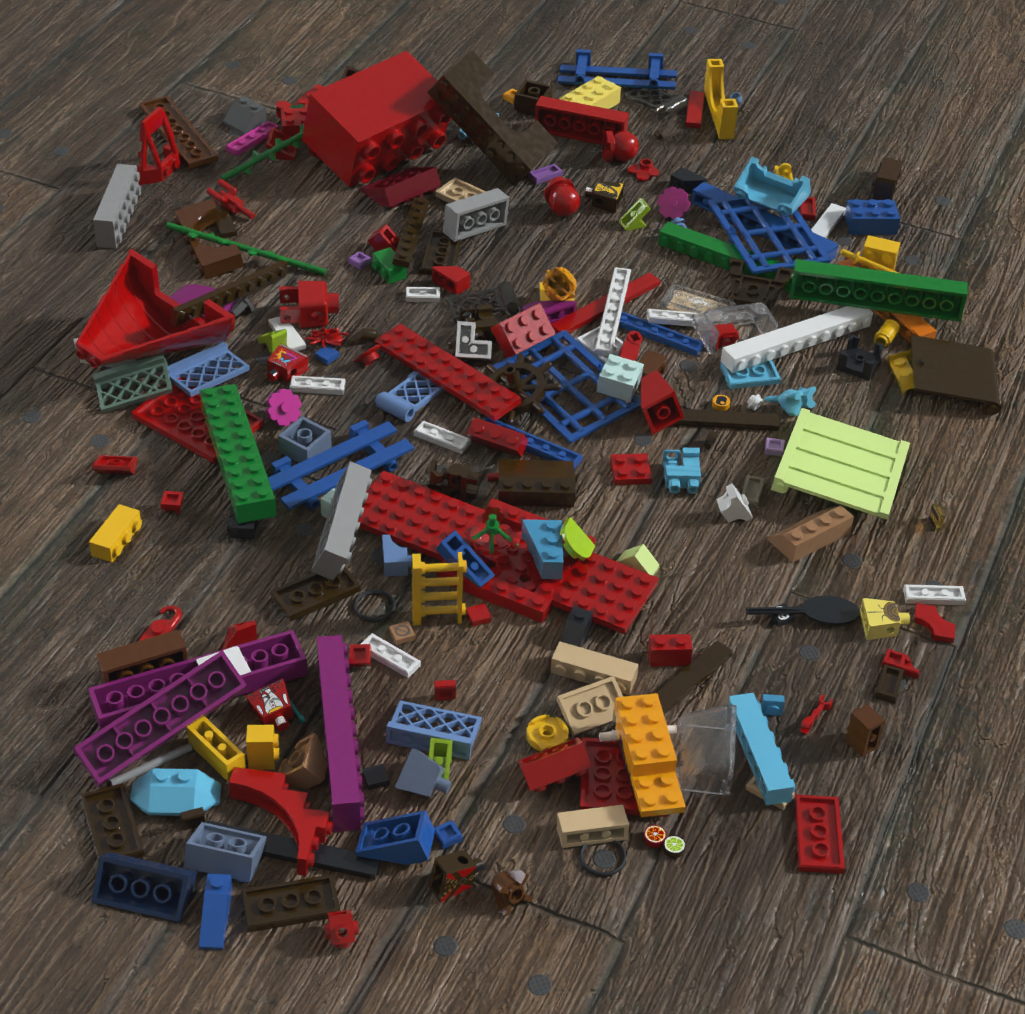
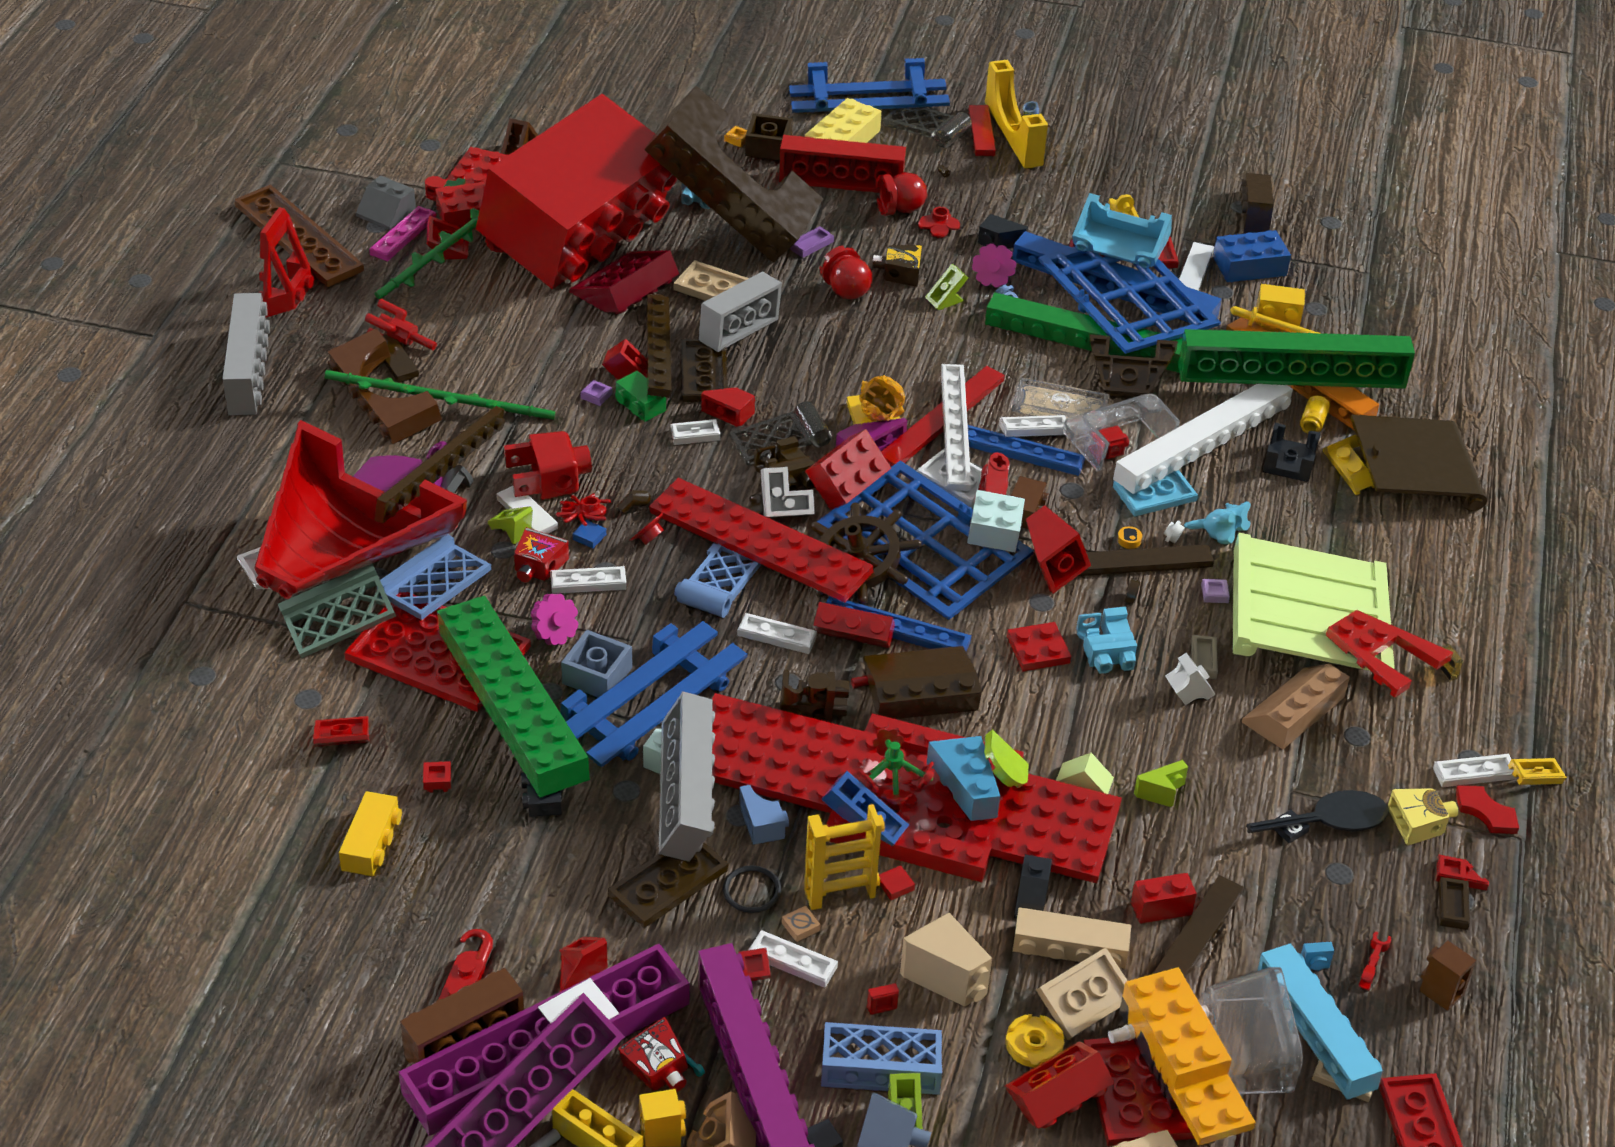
camera: 10 degrees left, 0 degrees up
(495, 670) = (947, 961): none -> tan slope
(691, 572) = (1161, 783): none -> lime slope
(873, 489) = (1369, 636): none -> red wing
(980, 601) = (1533, 772): none -> yellow tile

